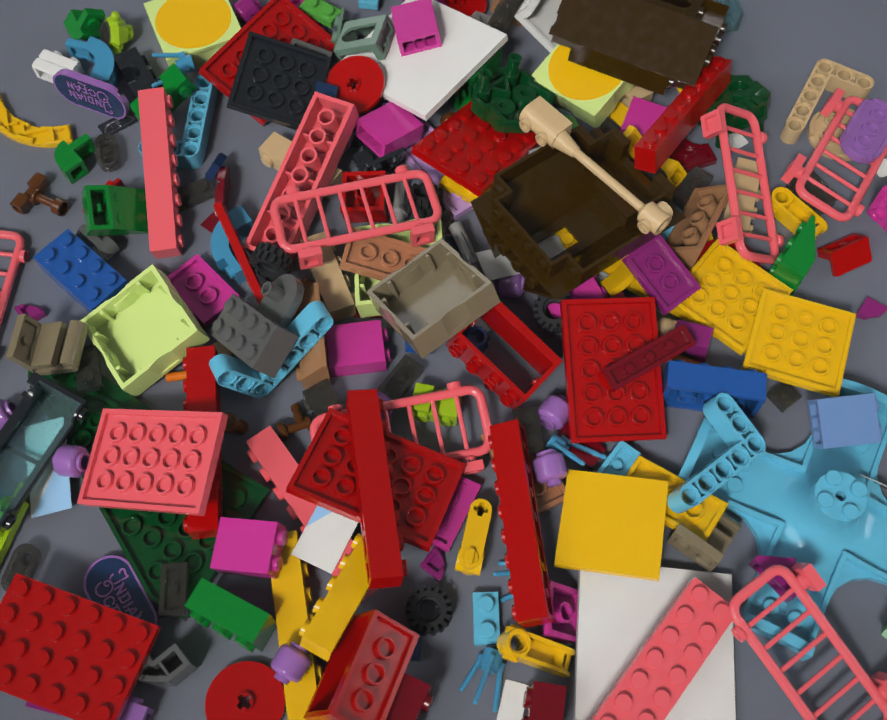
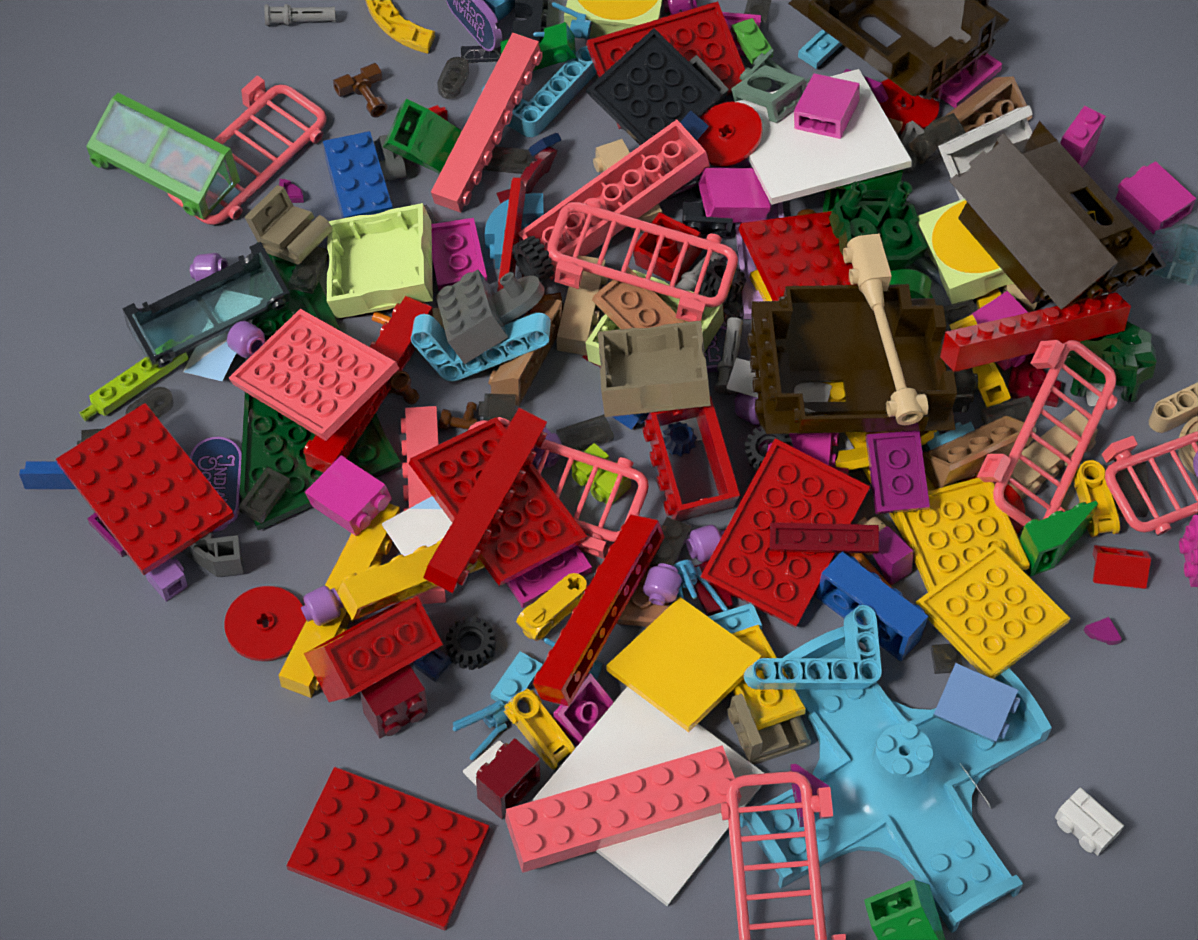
camera: 30 degrees right, 5 degrees down
(71, 157) = (416, 63): green brick -> none
(230, 616) = (297, 543): green brick -> none
(357, 348) = (562, 384): dark pink brick -> none
(434, 564) = (503, 610): magenta tile -> none

